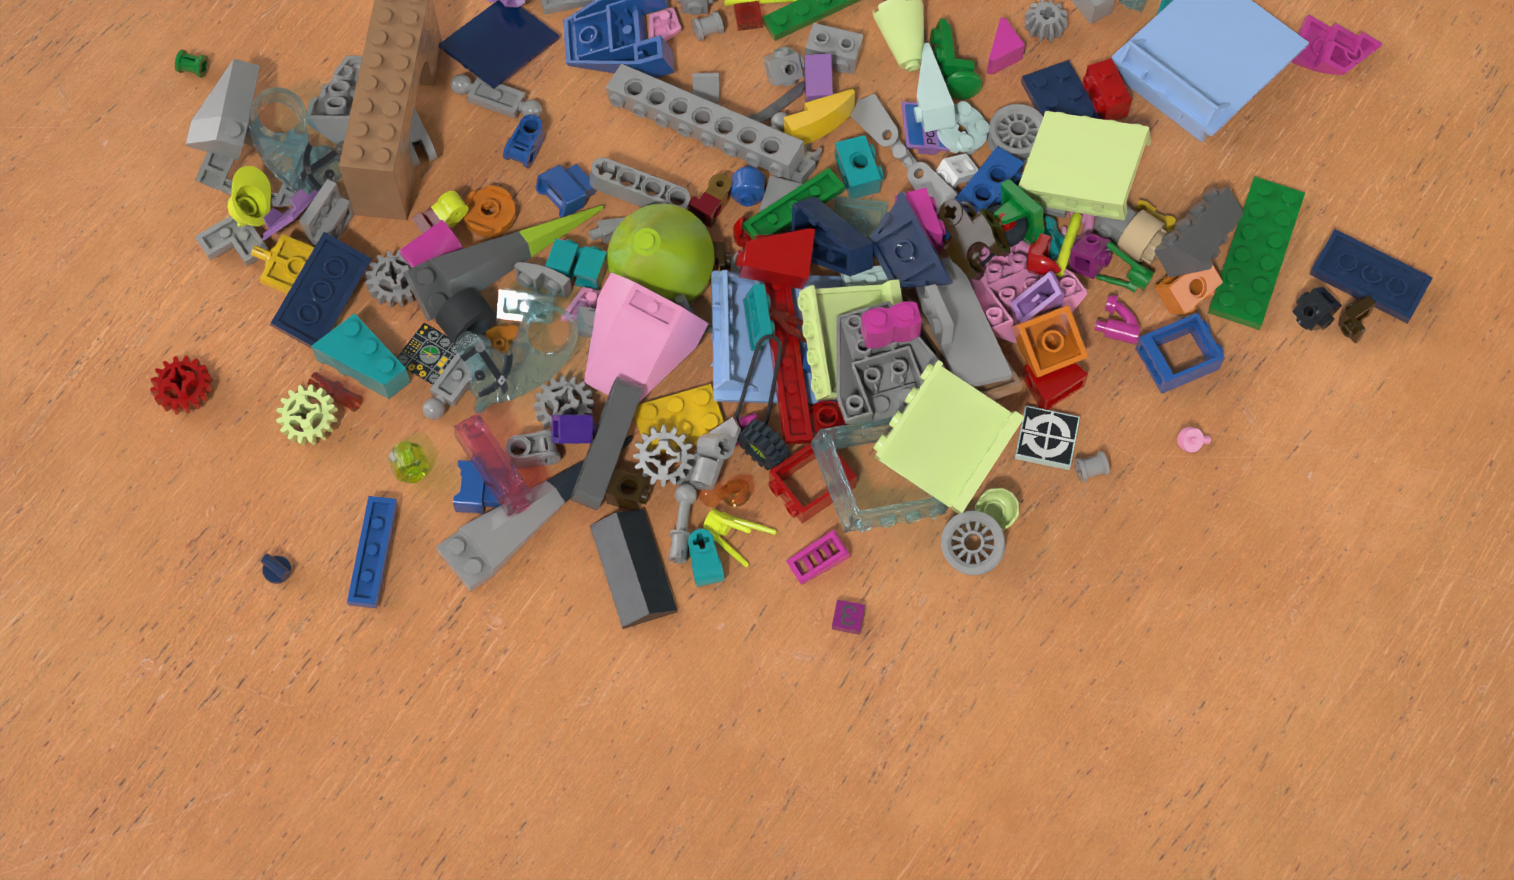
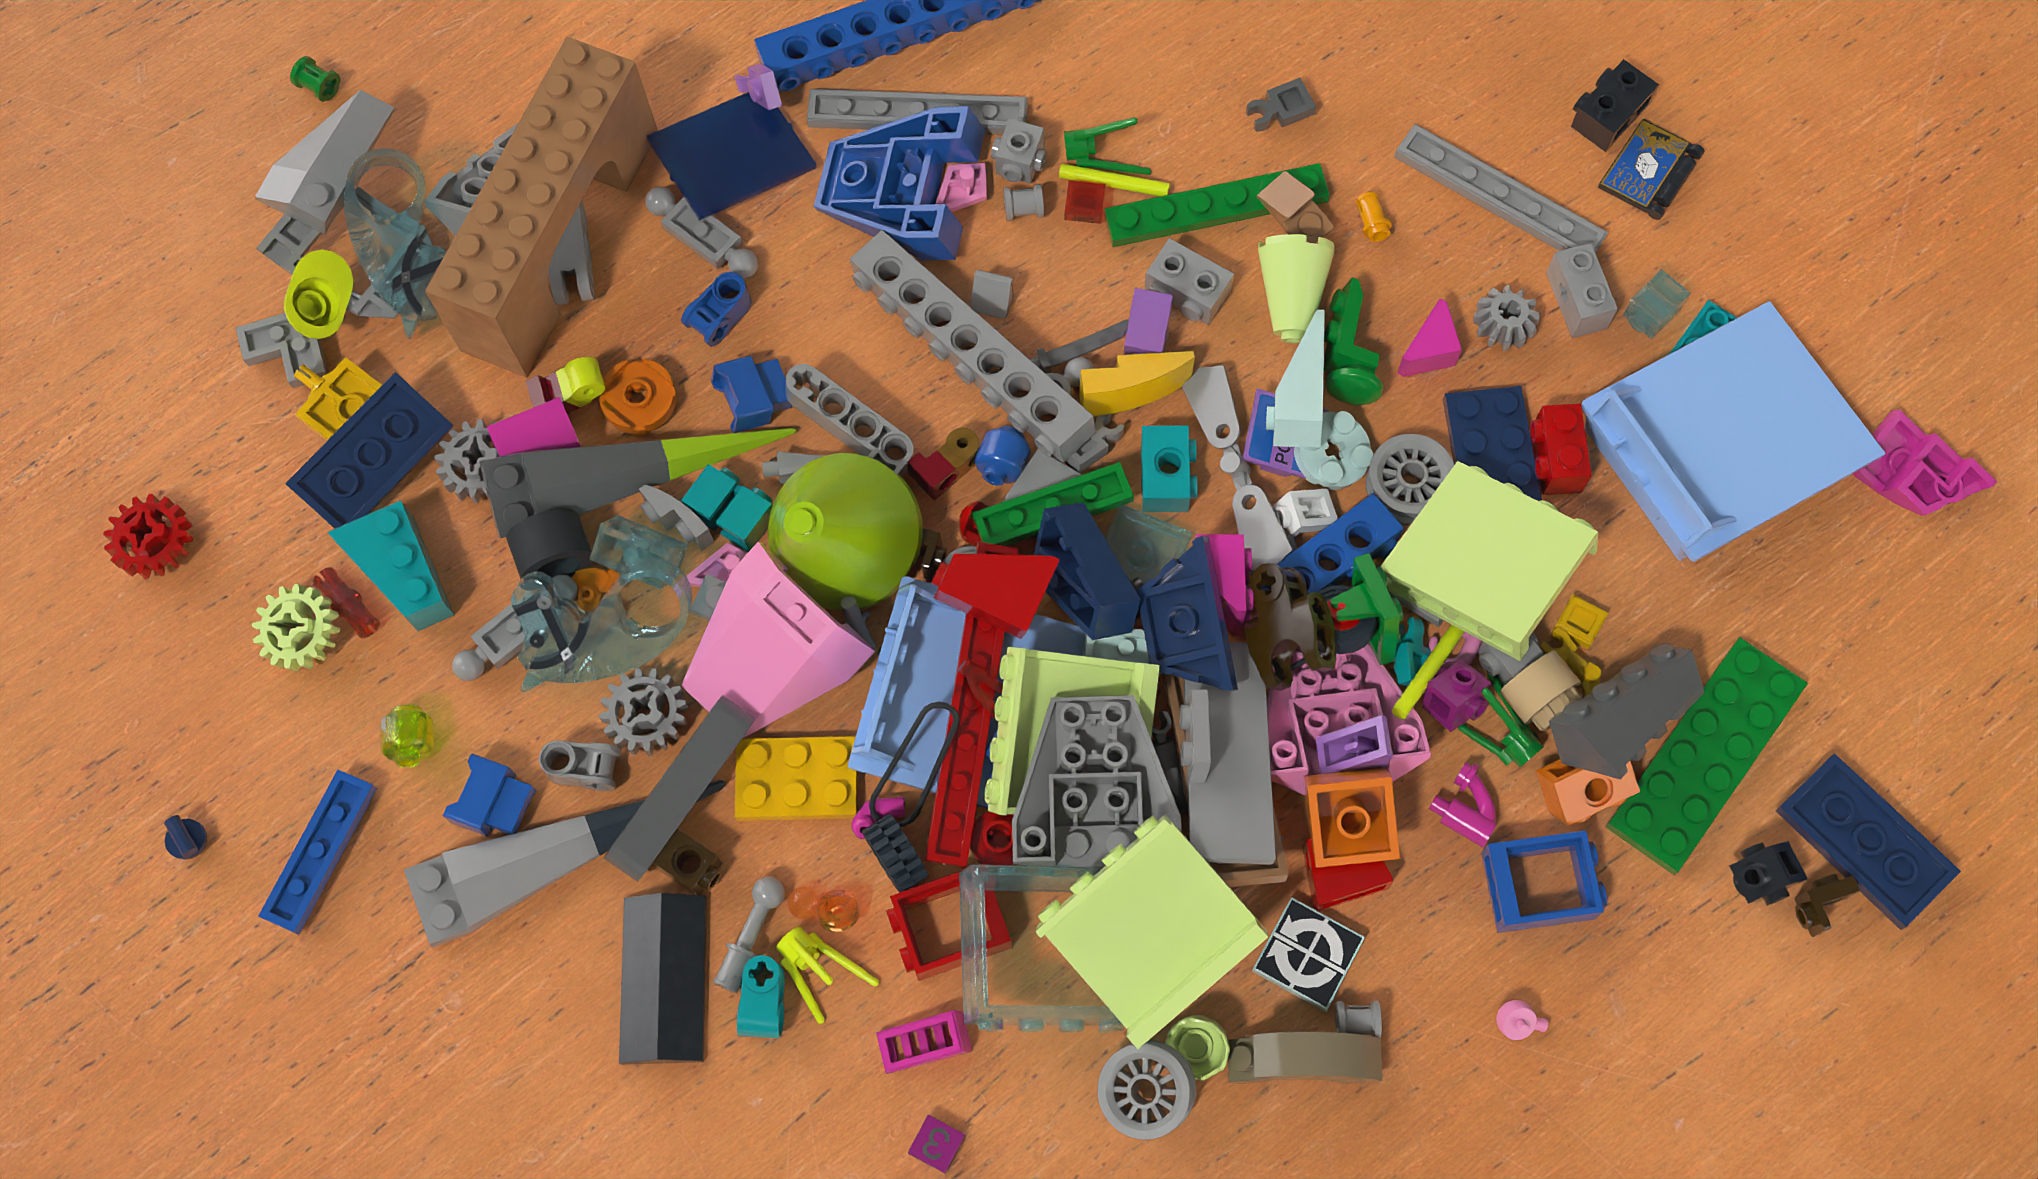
camera: 20 degrees right, 5 degrees up
(276, 220) = (348, 334): medium lavender piece -> none
(327, 213) = (413, 346): light grey slope -> none
(427, 353) = (485, 580): sticker -> none
(493, 465) = (510, 779): clear pink brick -> none
(572, 428) = (637, 755): dark purple brick -> none
(663, 443) = (768, 821): light grey gear -> none
(710, 454) = (820, 842): light grey panel -> none
(757, 315) = (944, 649): teal plate -> none
(783, 66) = (1108, 291): light grey brick -> none
(886, 325) = (1130, 739): dark pink brick -> none
(1038, 257) = (1376, 680): red plate -> none
(1066, 492) = (1305, 1056): none -> dark tan arch
(1153, 192) = (1581, 621): none -> yellow tile

